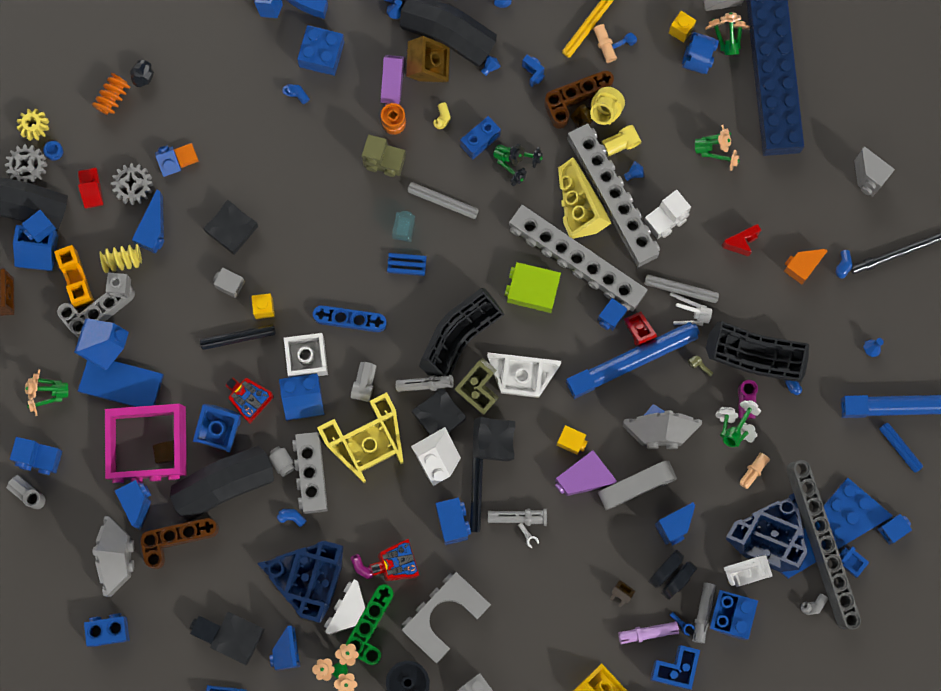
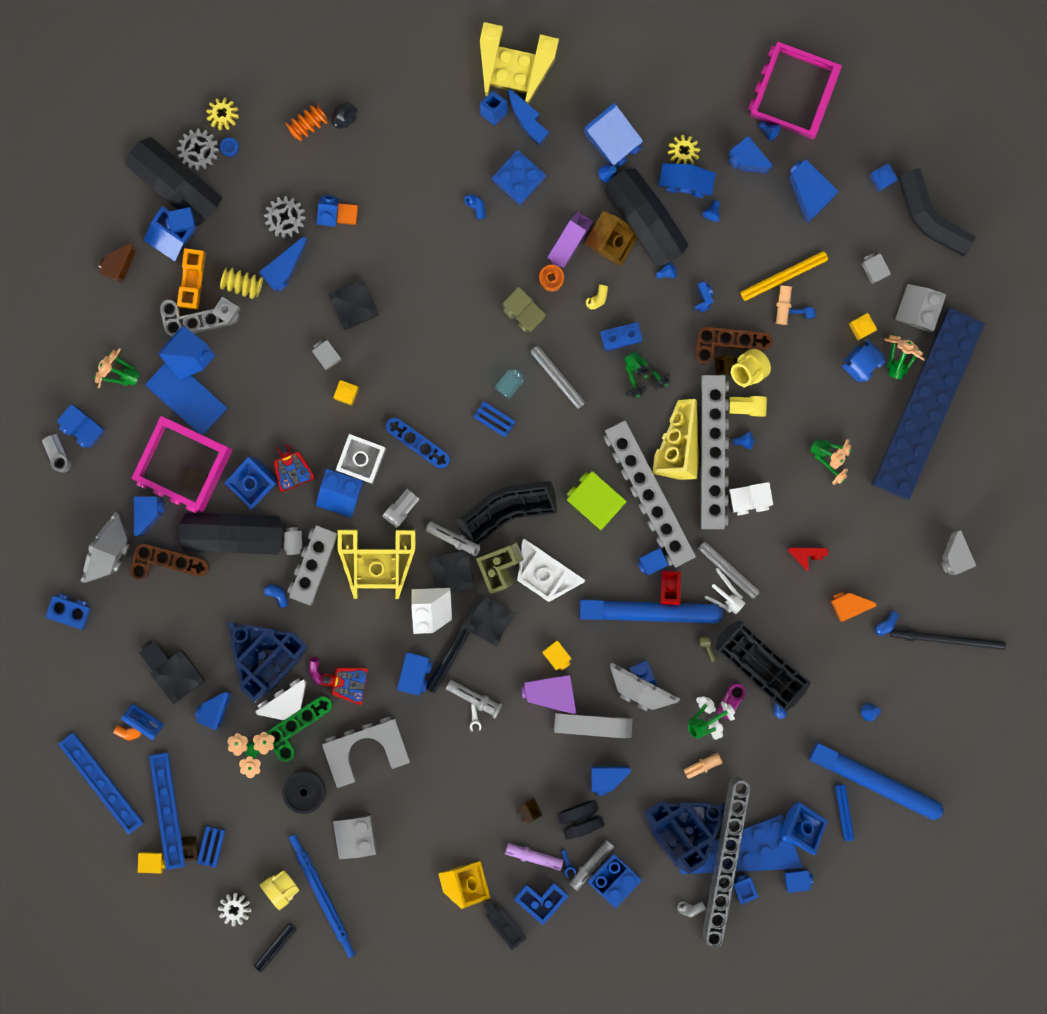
camera: 30 degrees right, 10 degrees up
(90, 188) = (246, 200): red slope -> none
(237, 337) = (310, 408): black axle -> none
(748, 571) = (648, 850): white hinge -> none
(873, 478) = (803, 828): none -> blue slope

